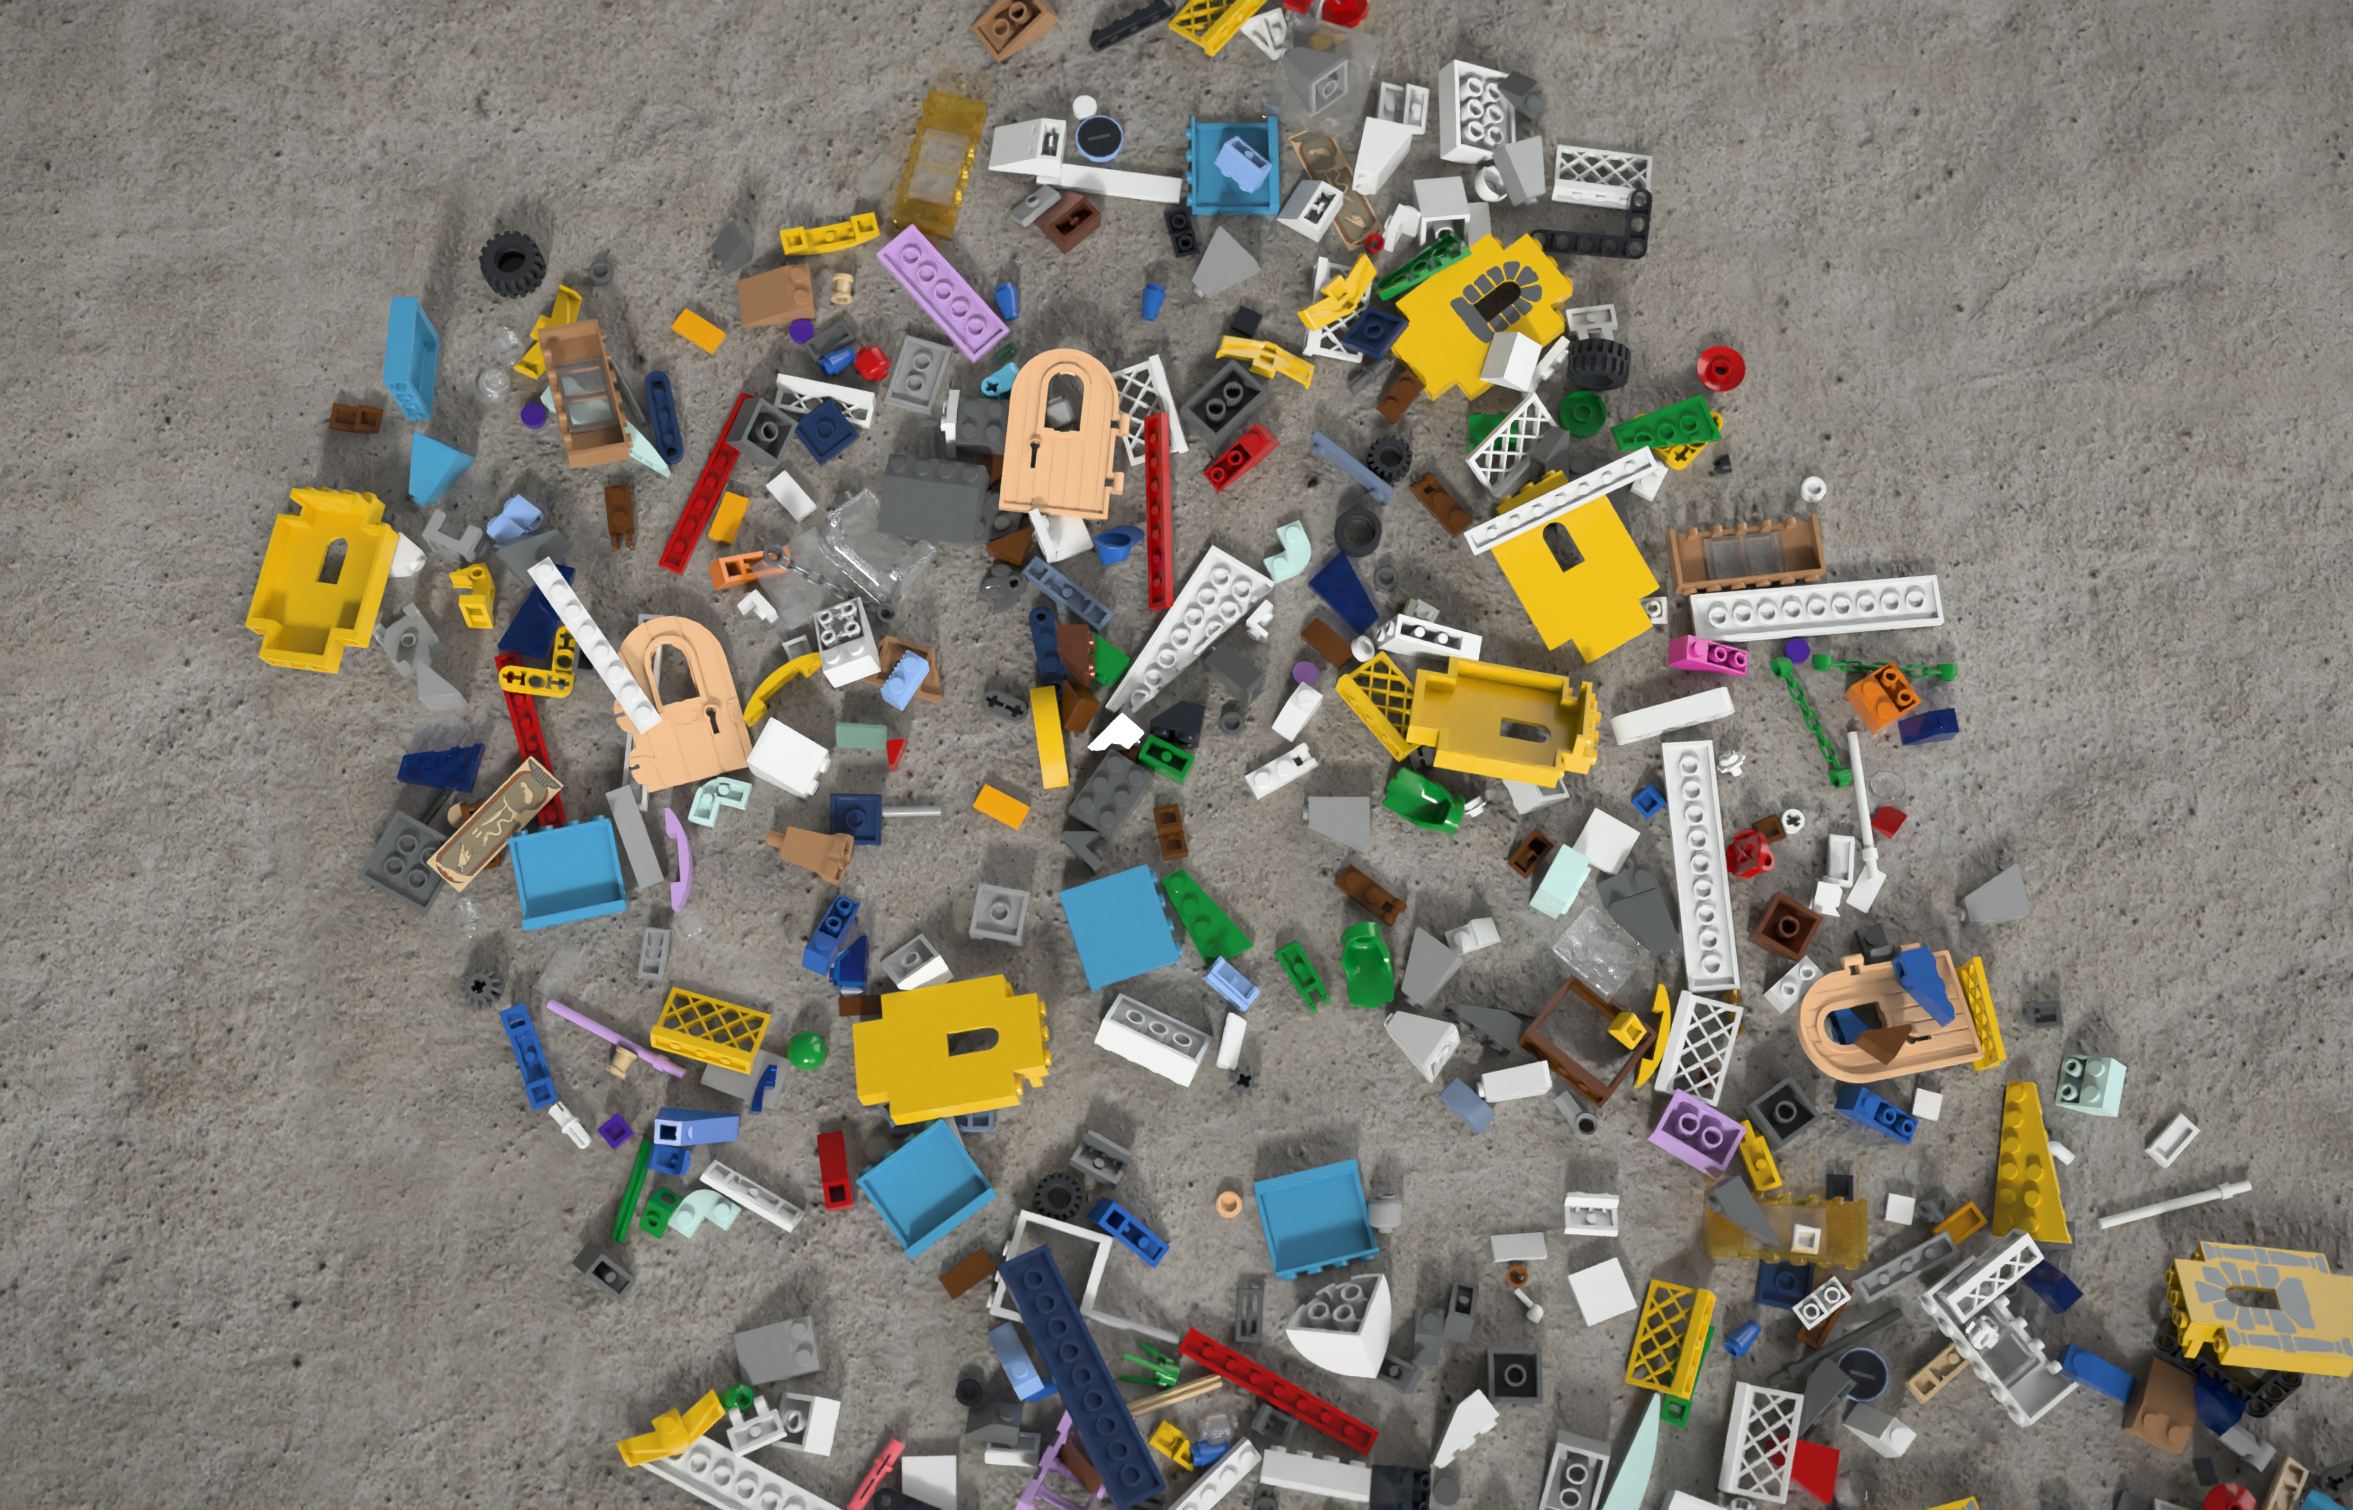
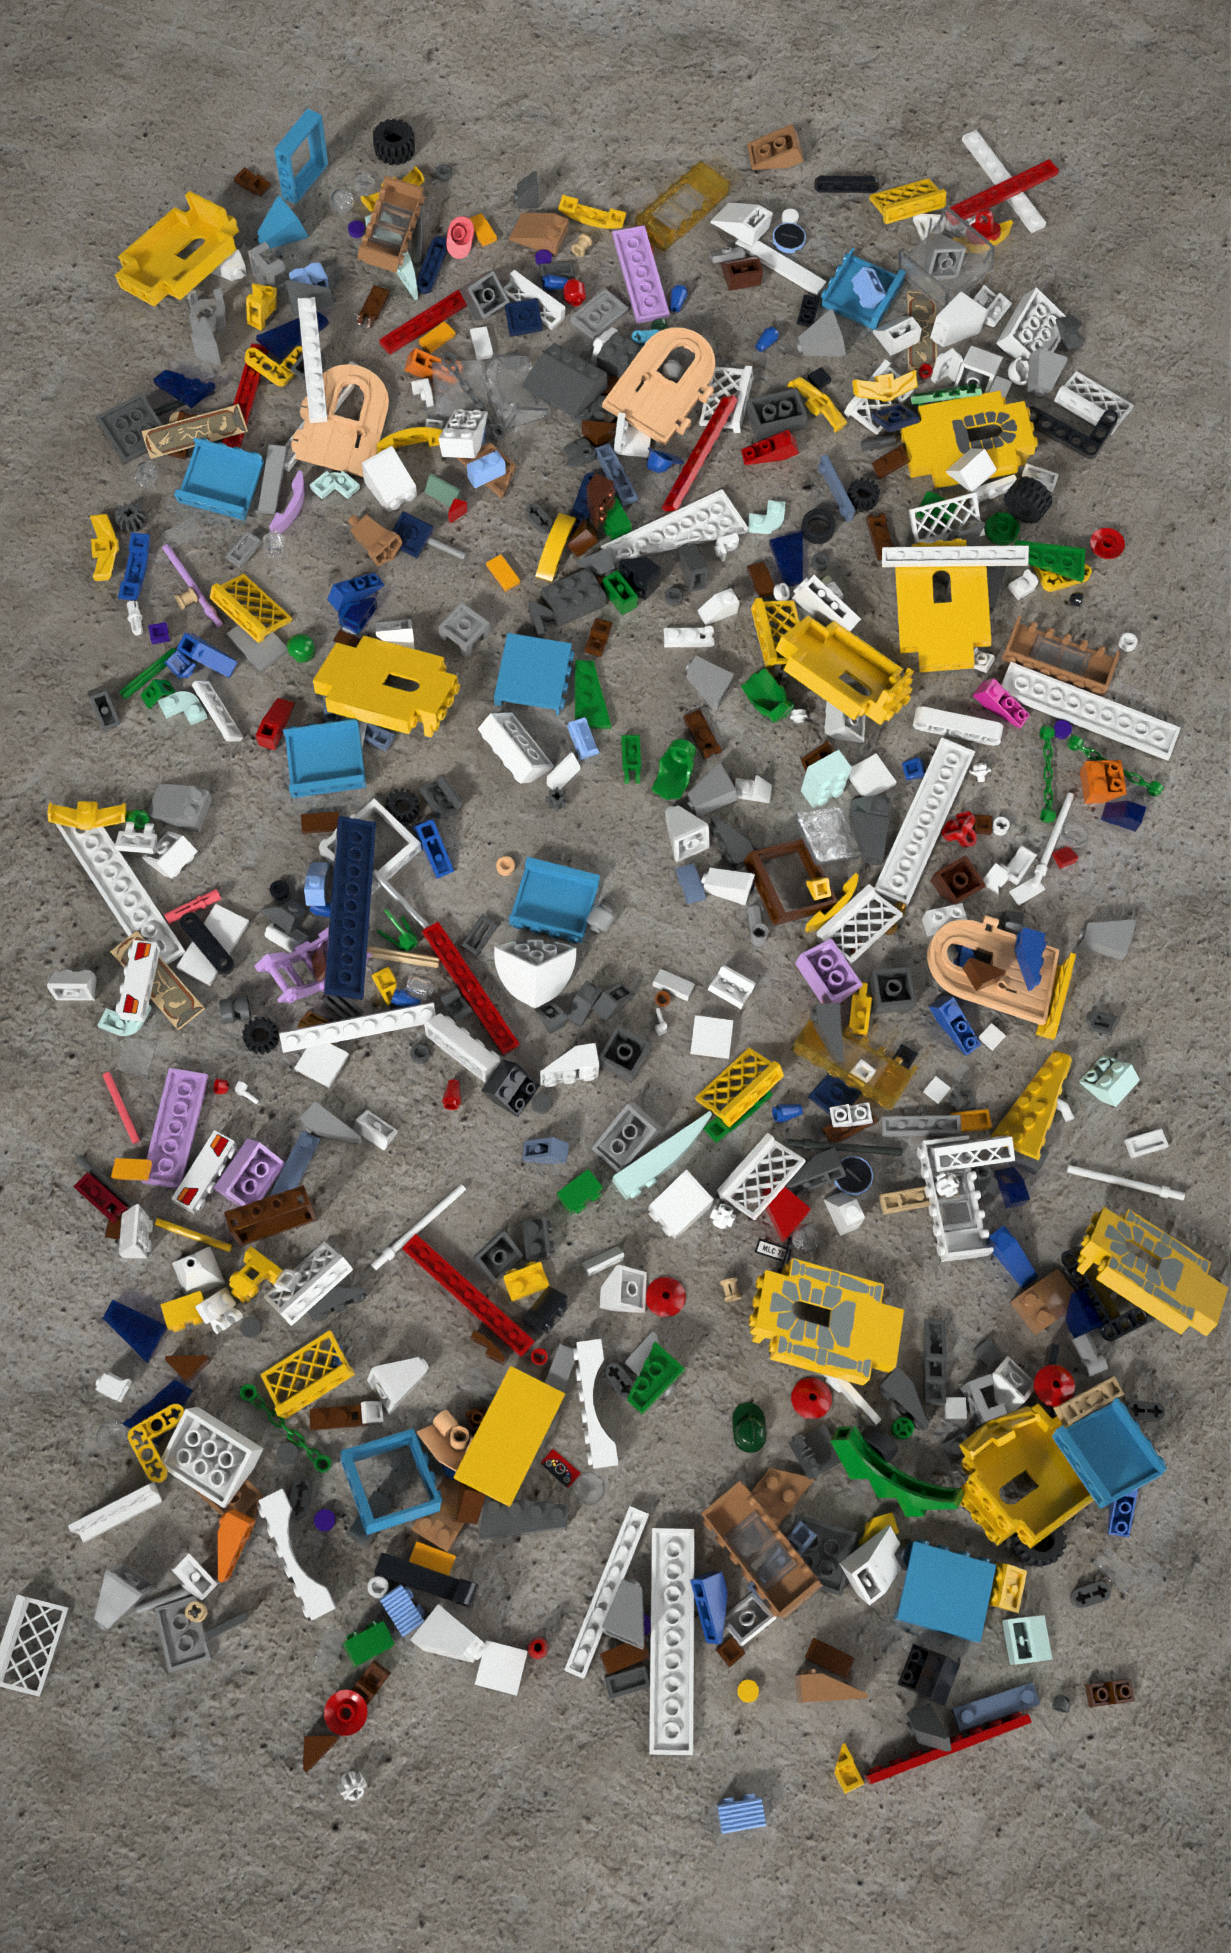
camera: 25 degrees right, 5 degrees down
(472, 1048) = (104, 547): none -> yellow plate
(679, 361) = (459, 237): none -> coral piece
(766, 1081) = (262, 649): clear blue slope -> none
(1305, 672) = (738, 588): medium lavender tile -> none

